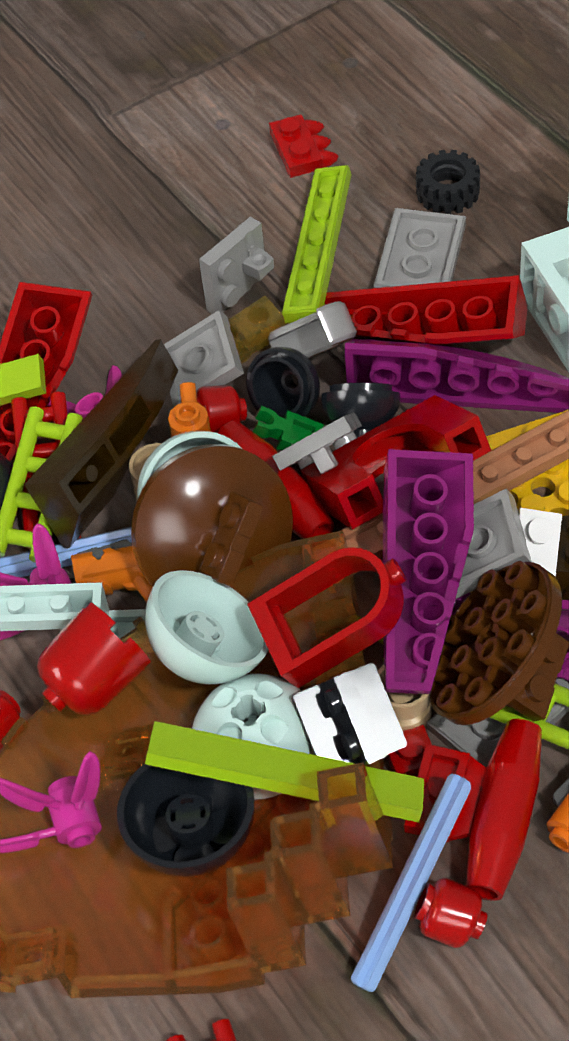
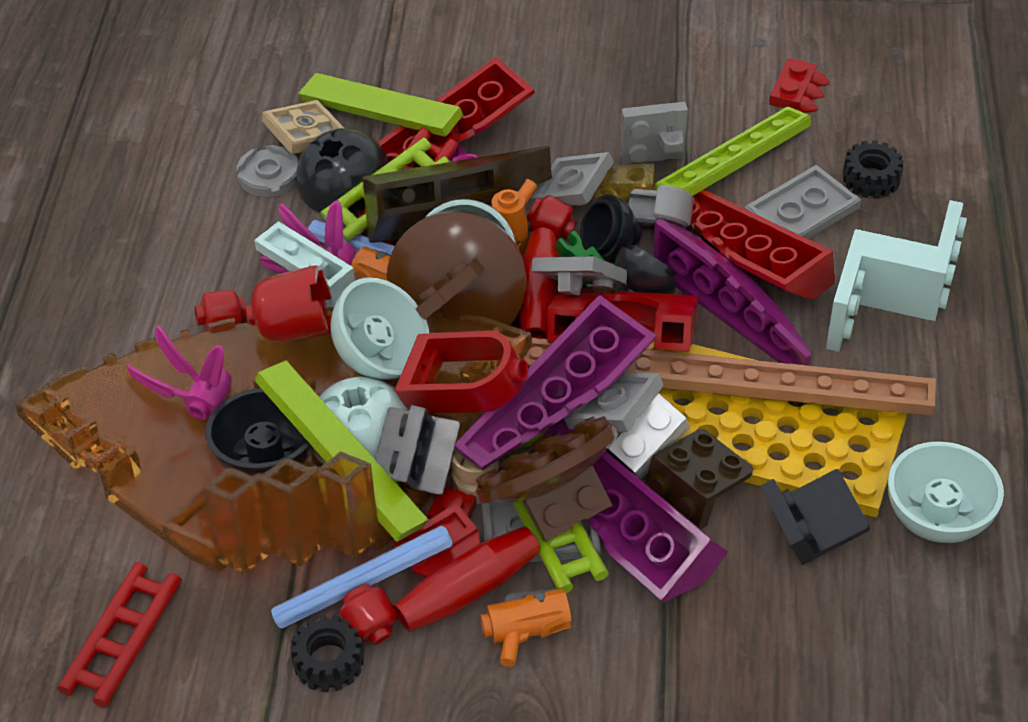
camera: 35 degrees right, 5 degrees down
(442, 1007) = (333, 672): none -> black tyre

